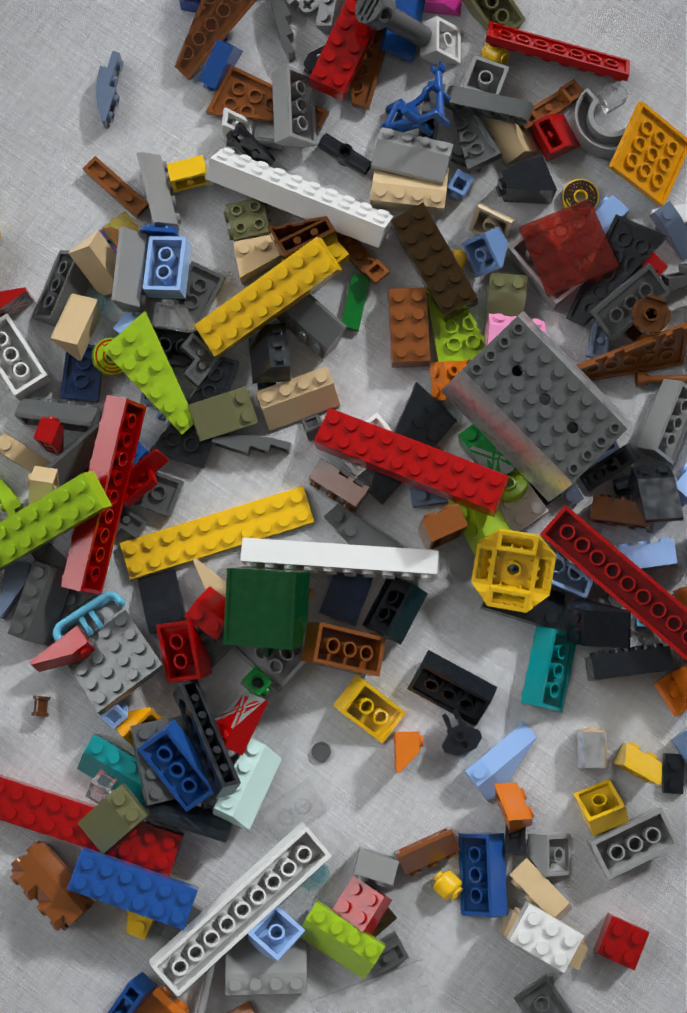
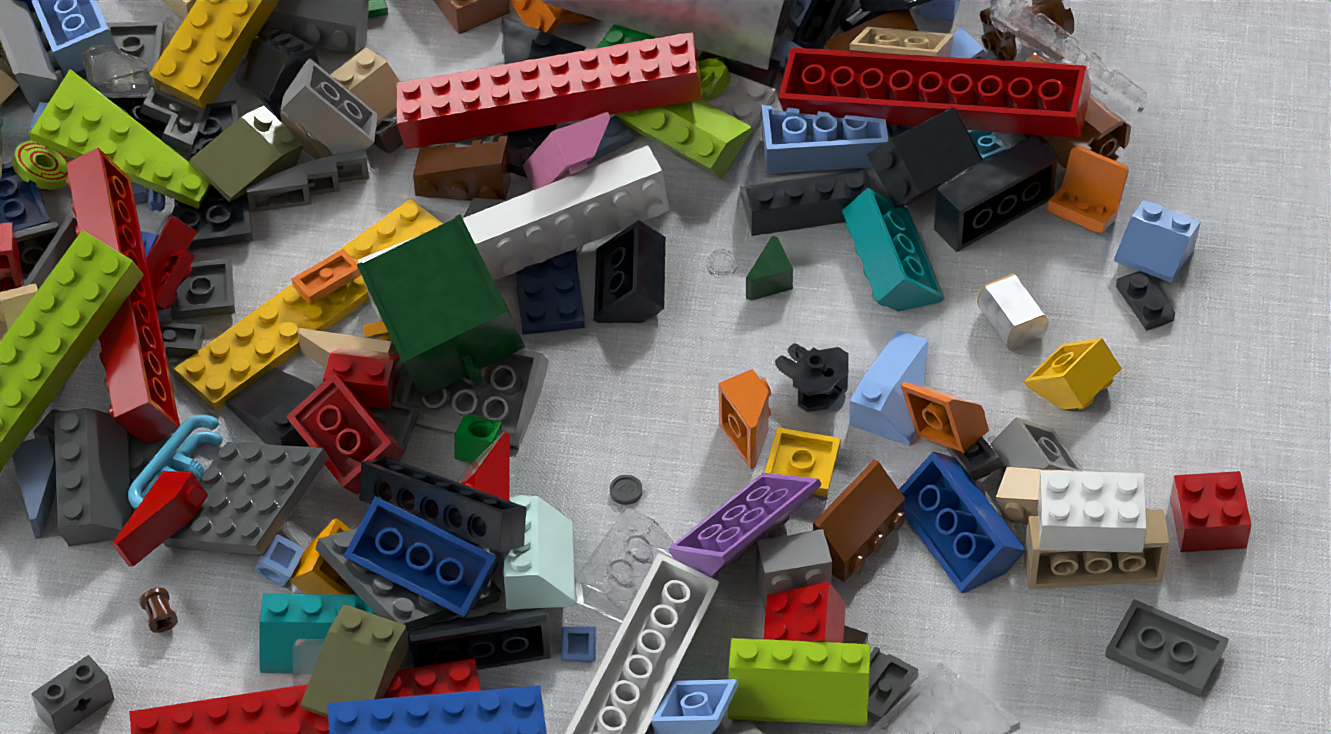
camera: 25 degrees left, 30 degrees down
(226, 528) = (326, 276): none -> orange plate
(246, 840) = (578, 643): none -> medium blue slope
(282, 409) = (329, 111): none -> light grey slope
(321, 874) = (715, 631): clear light blue plate -> none
(343, 649) = (583, 330): dark orange brick -> none
(363, 828) = (742, 521): none -> medium lavender slope
(369, 708) = (664, 401): yellow slope -> none
(396, 521) = (565, 151): none -> bright pink slope
(422, 787) = (804, 456): none -> yellow plate
(442, 526) = (640, 118): dark orange brick -> none
(447, 885) = (916, 557): yellow head -> none
(452, 687) = (763, 328): black slope -> none
(474, 647) = (770, 273): none -> dark green slope
(507, 588) = (760, 102): yellow piece -> none
(630, 538) = (903, 42): none -> tan slope
(633, 843) = (1140, 384): light grey slope -> none
(639, 764) = (1088, 295): yellow slope -> none

